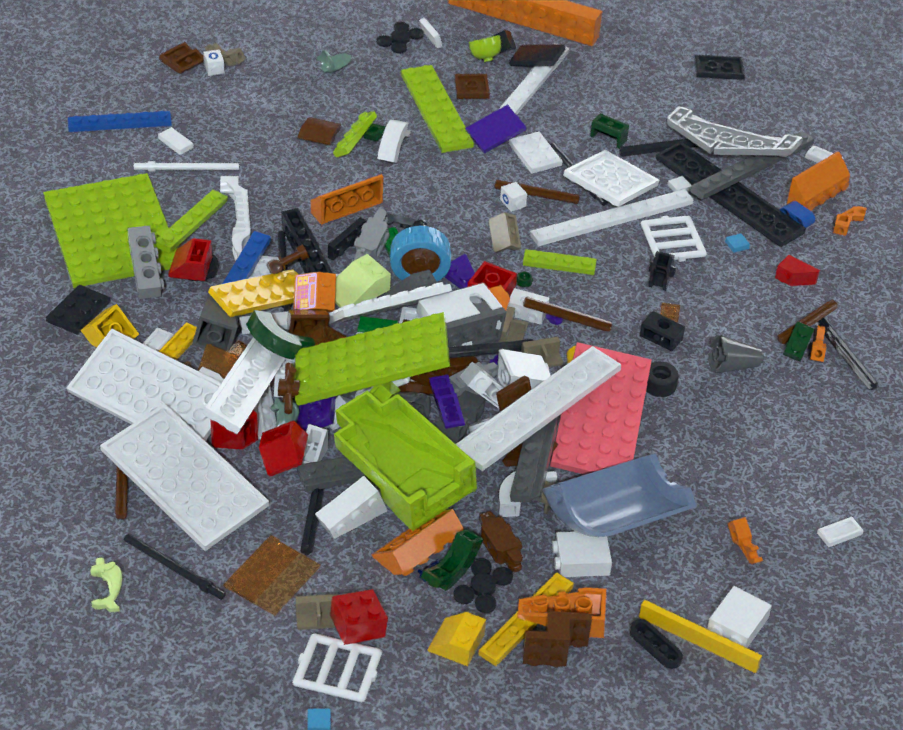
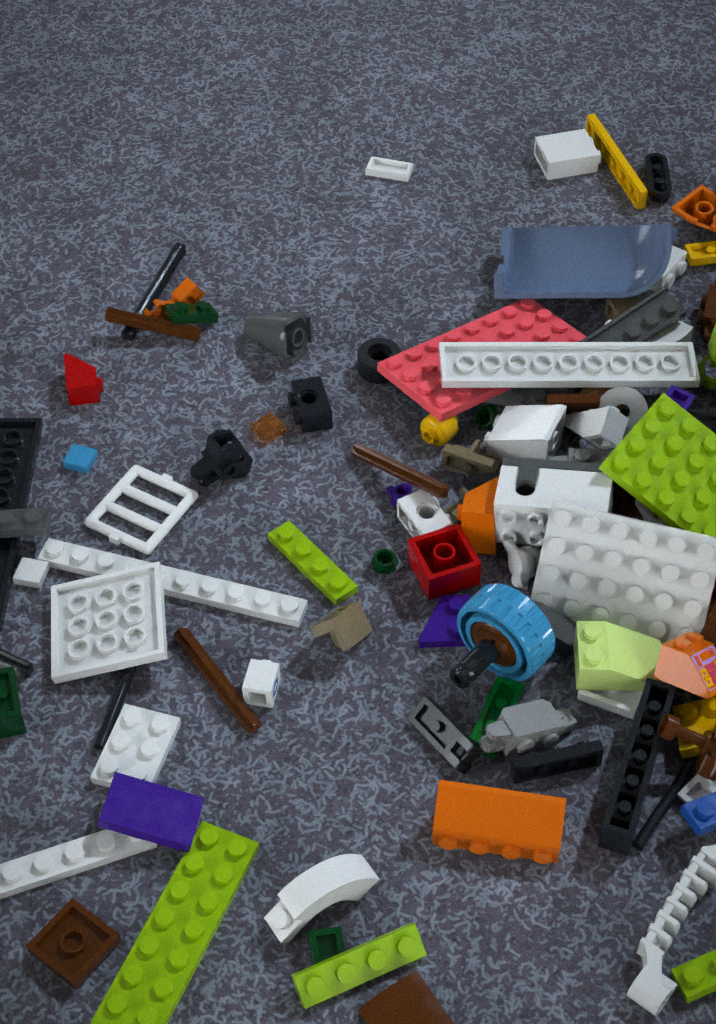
camera: 135 degrees left, 5 degrees up
(742, 536) = (484, 202): orange piece -> none

